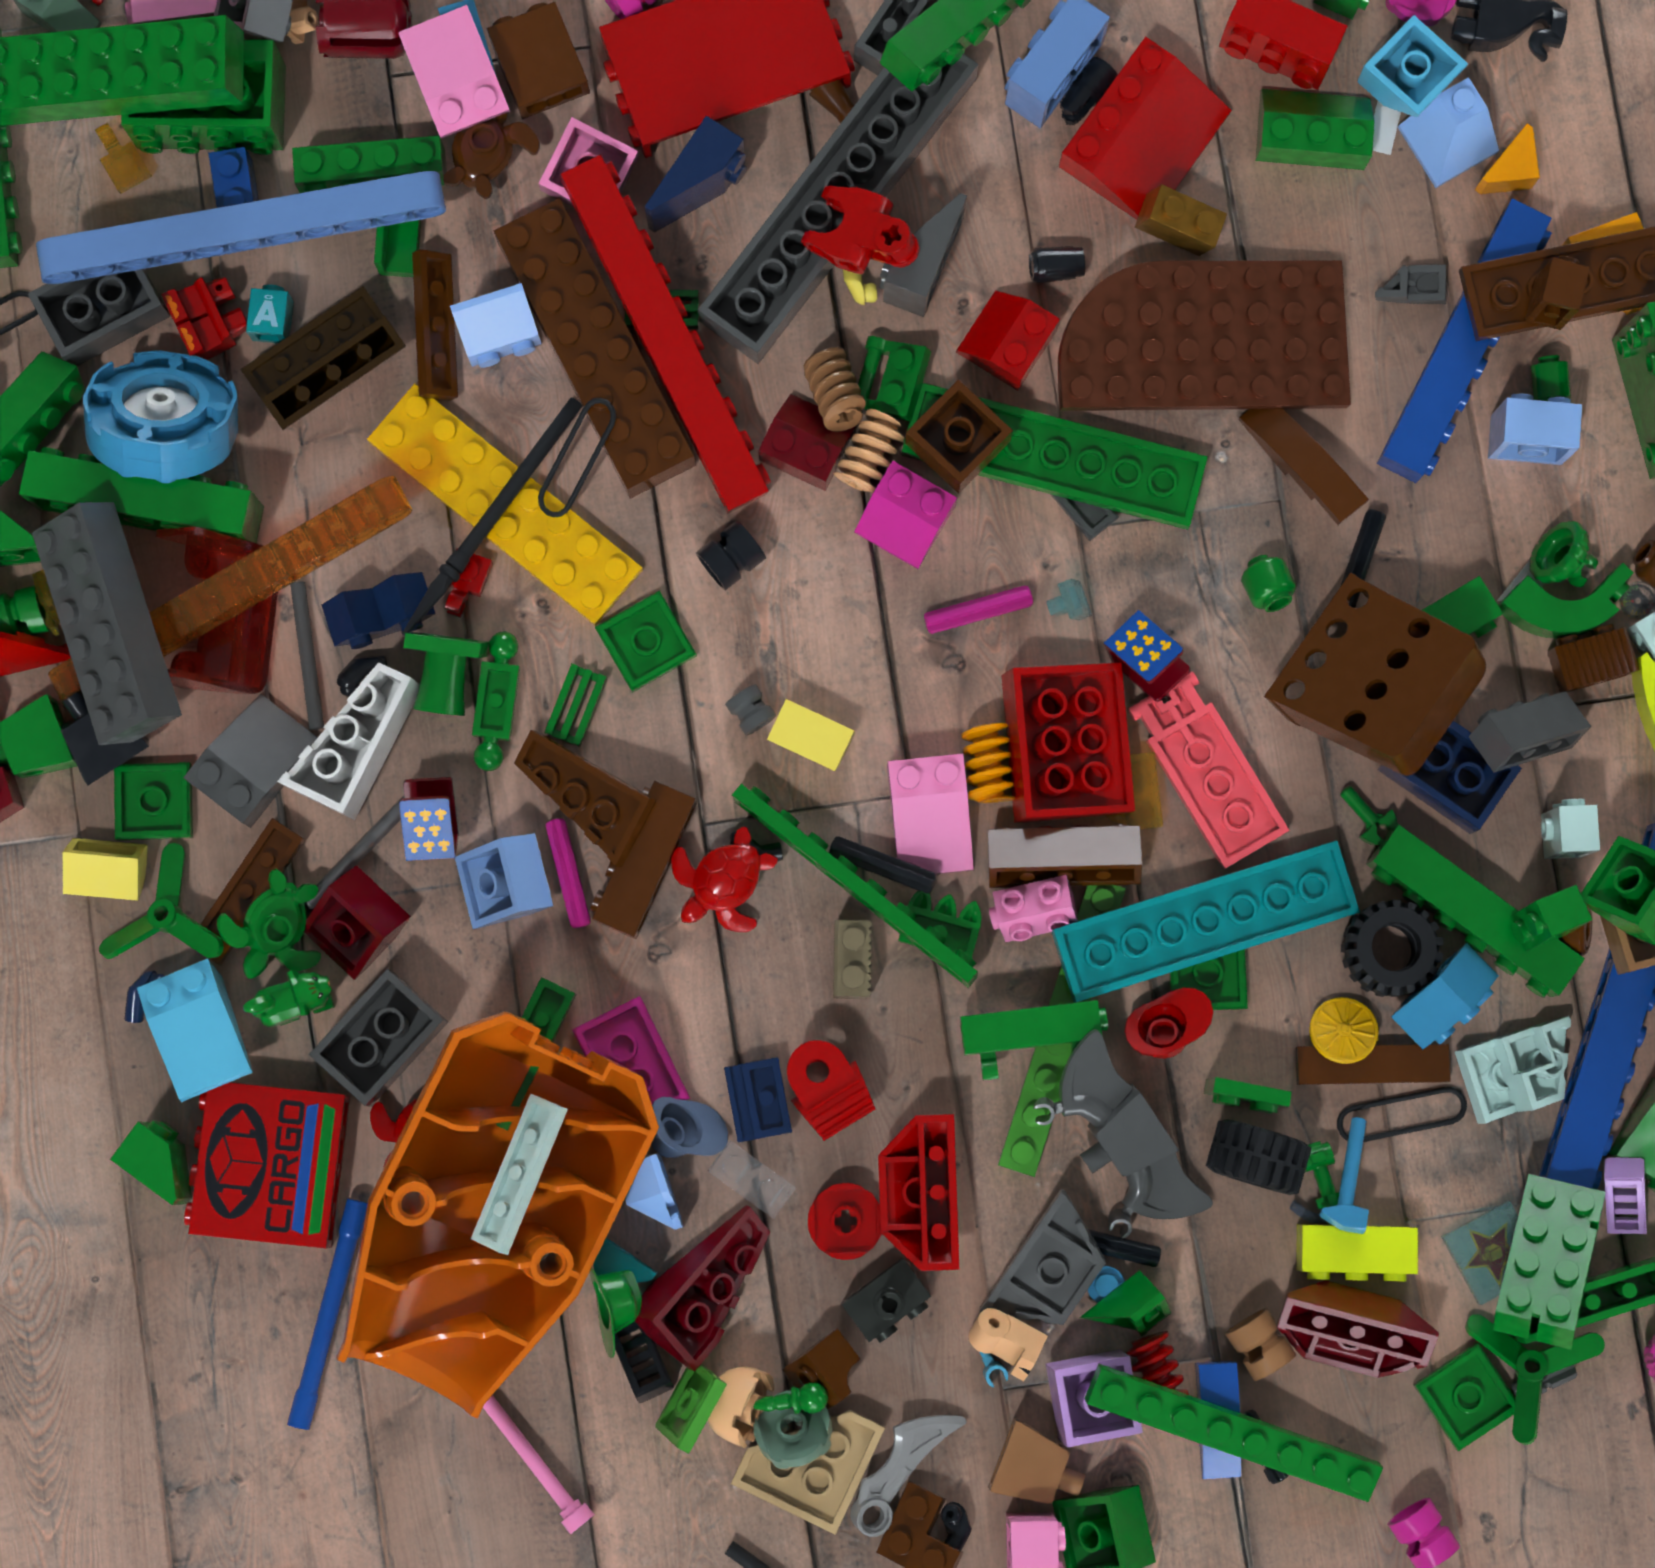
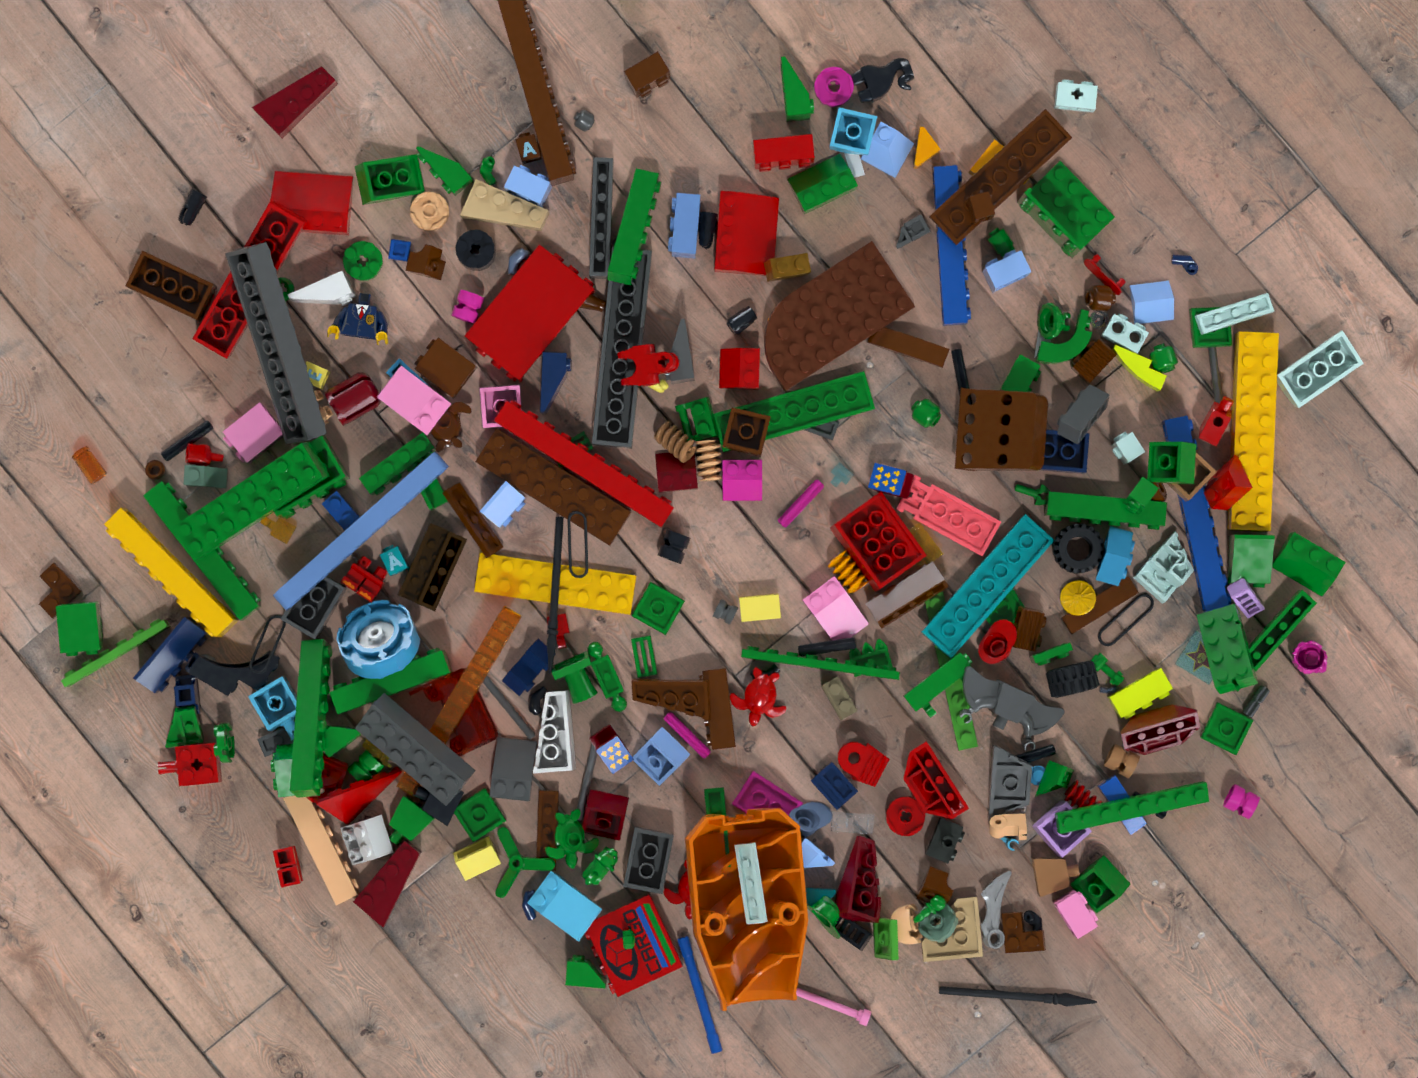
camera: 30 degrees left, 5 degrees up
(263, 1146) = (628, 939): none -> green tile
(1033, 908) = (907, 627): bright pink brick -> none
(1234, 1028) = (1028, 627): none -> reddish brown brick
(1346, 1215) = (1126, 681): dark azure piece -> none
(1530, 1384) = (1250, 708): green piece -> none

